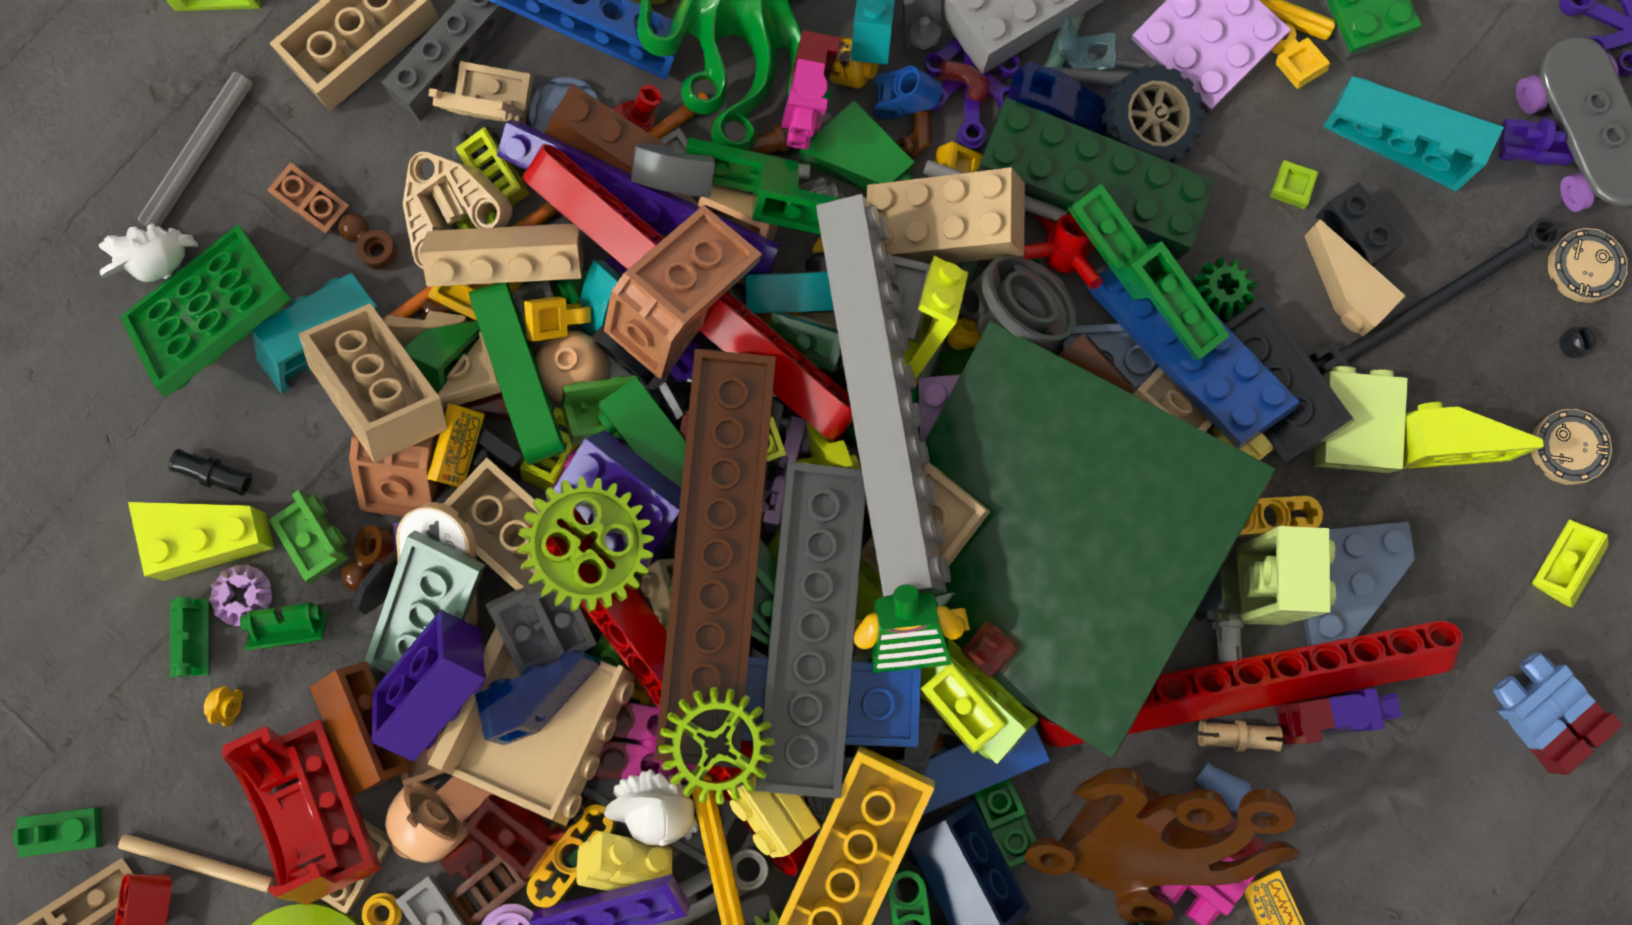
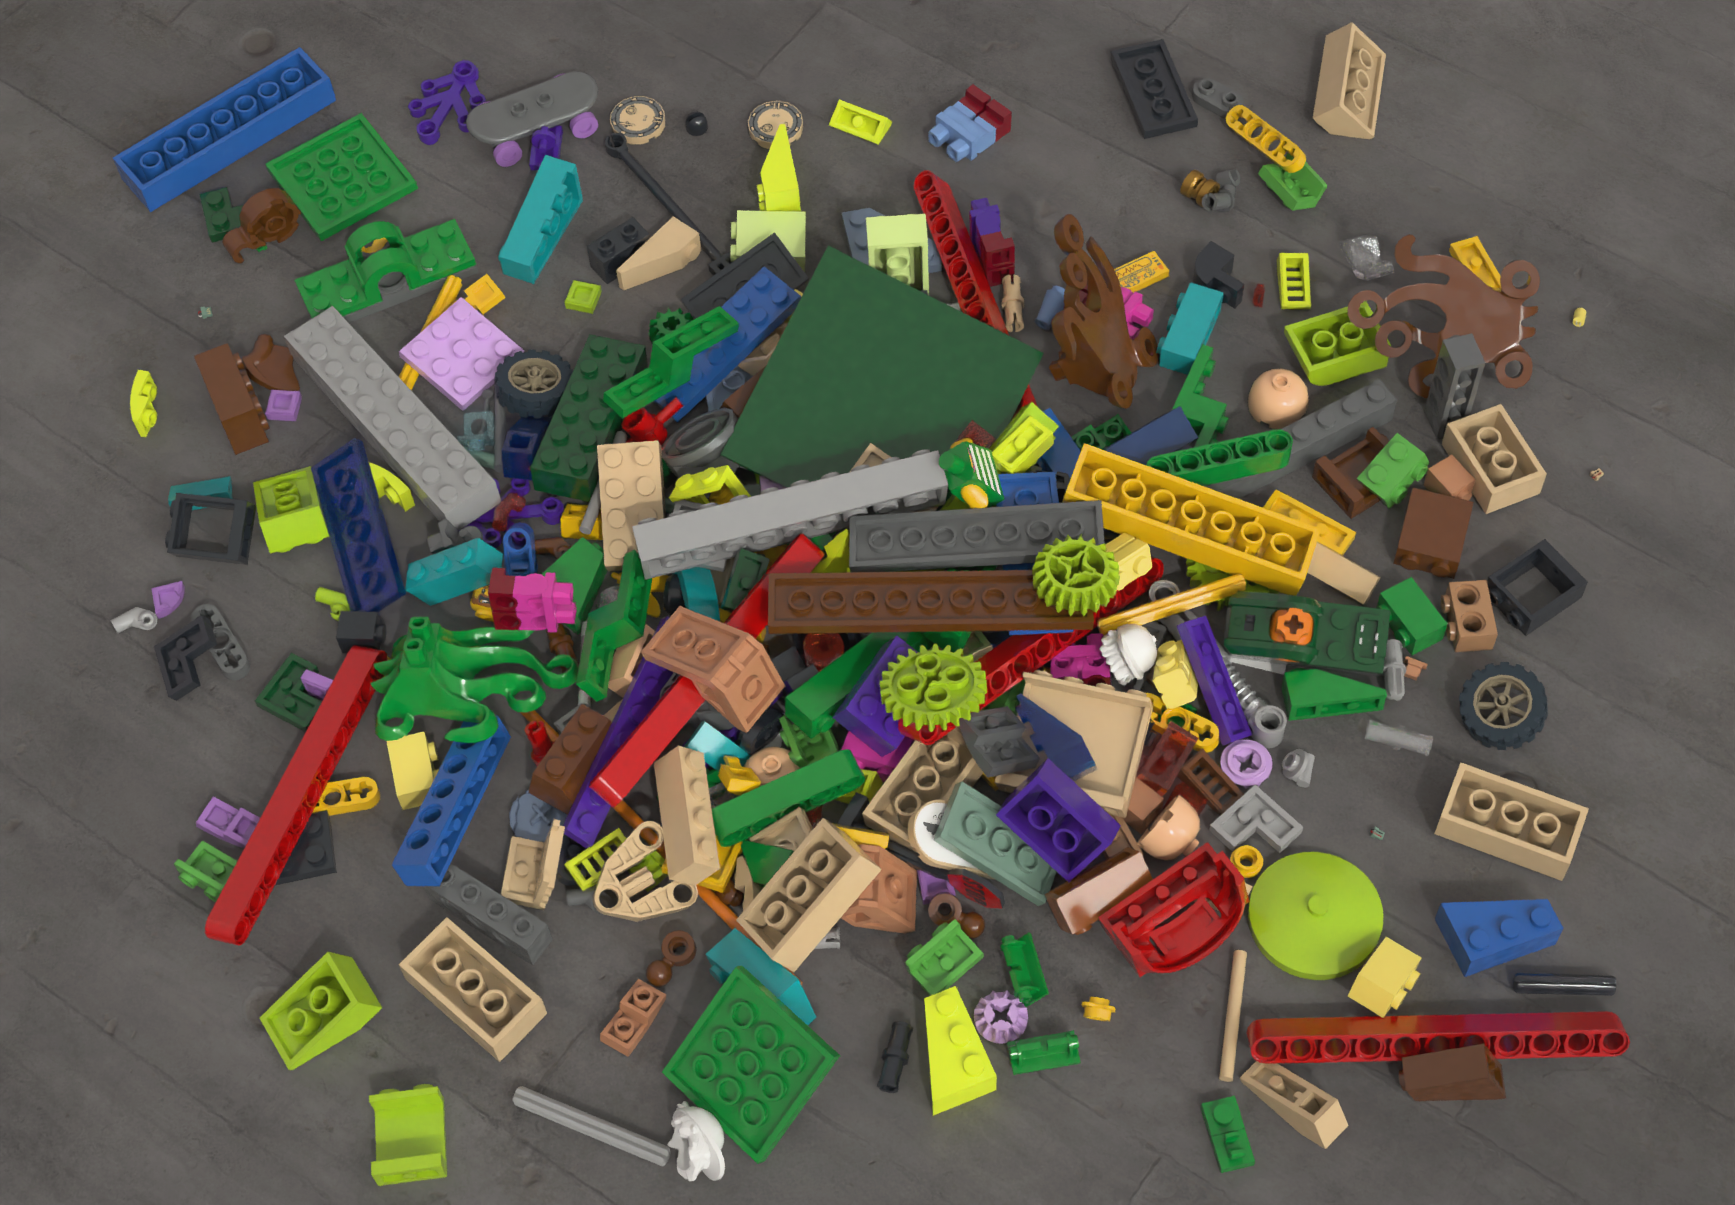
camera: 95 degrees left, 20 degrees down
(671, 171) = (606, 696): dark grey slope -> none

